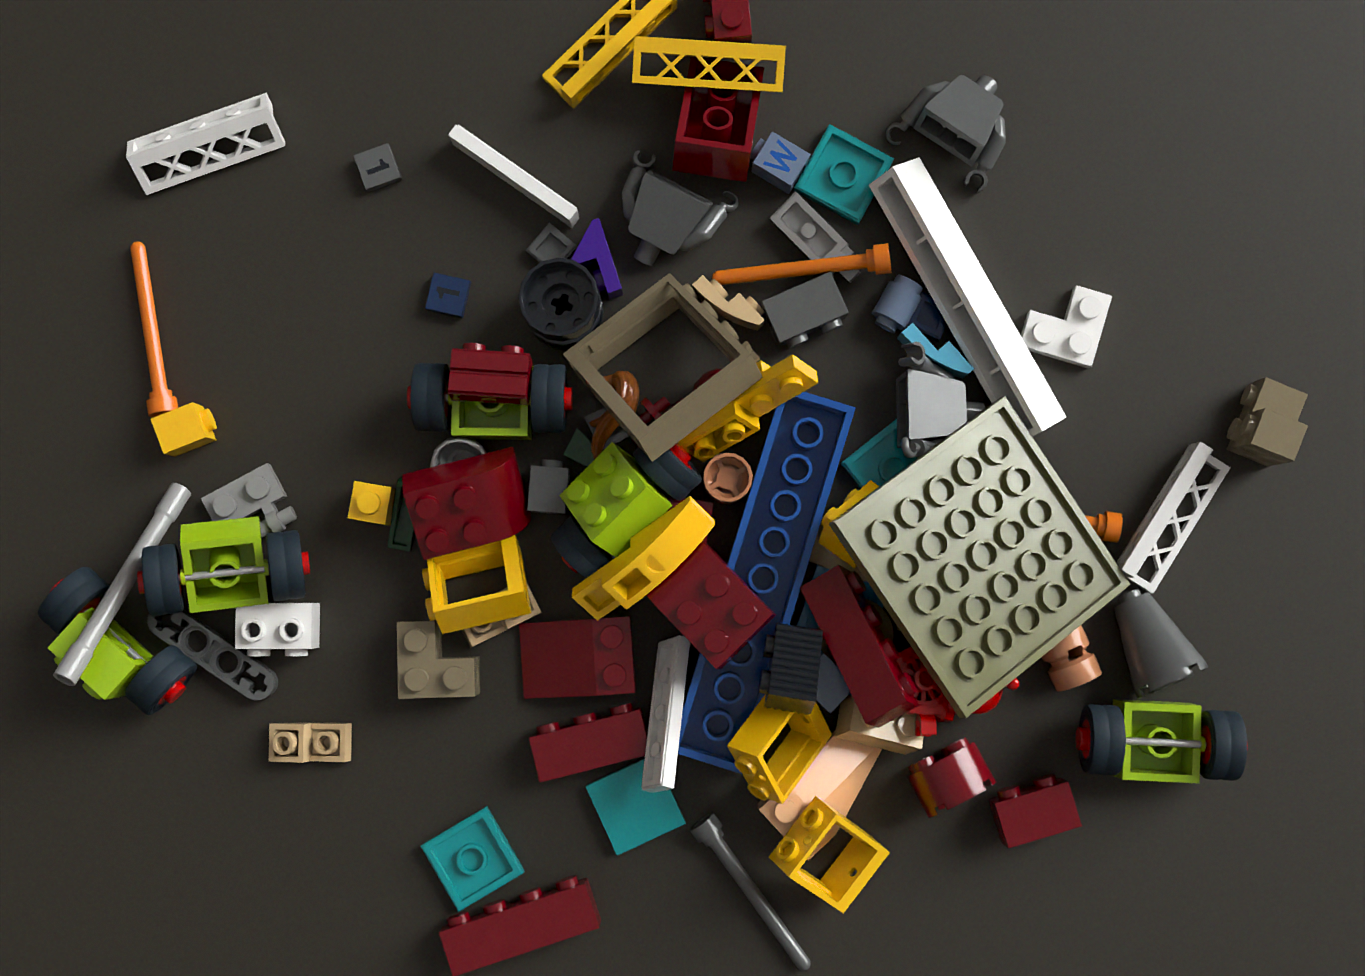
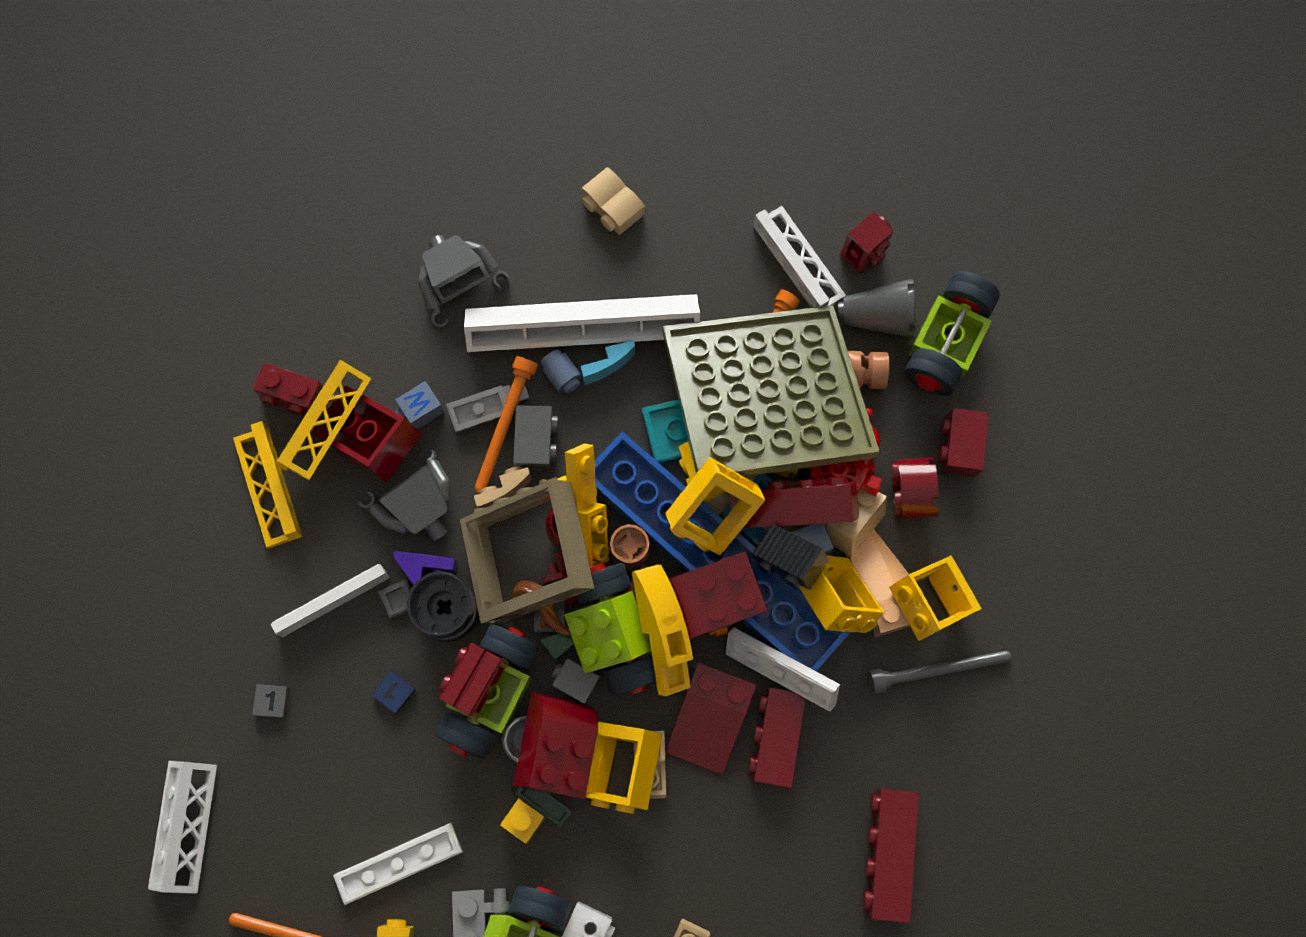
camera: 70 degrees left, 10 degrees down
(271, 391) = (397, 863): none -> white tile
(425, 671) = (666, 840): dark tan brick -> none
(472, 858) = (825, 870): teal tile -> none
(631, 813) = (841, 731): teal tile -> none
(841, 174) = (449, 367): teal tile -> none
(844, 548) = (709, 475): none -> yellow window
(928, 318) = (582, 355): dark blue tile -> none
(928, 403) = (642, 382): torso -> none
(1074, 337) = (642, 265): white plate -> none
(1137, 264) = (612, 201): none -> tan brick
(1230, 591) = (867, 242): none -> dark red brick
(1268, 423) = (764, 166): dark tan brick -> none

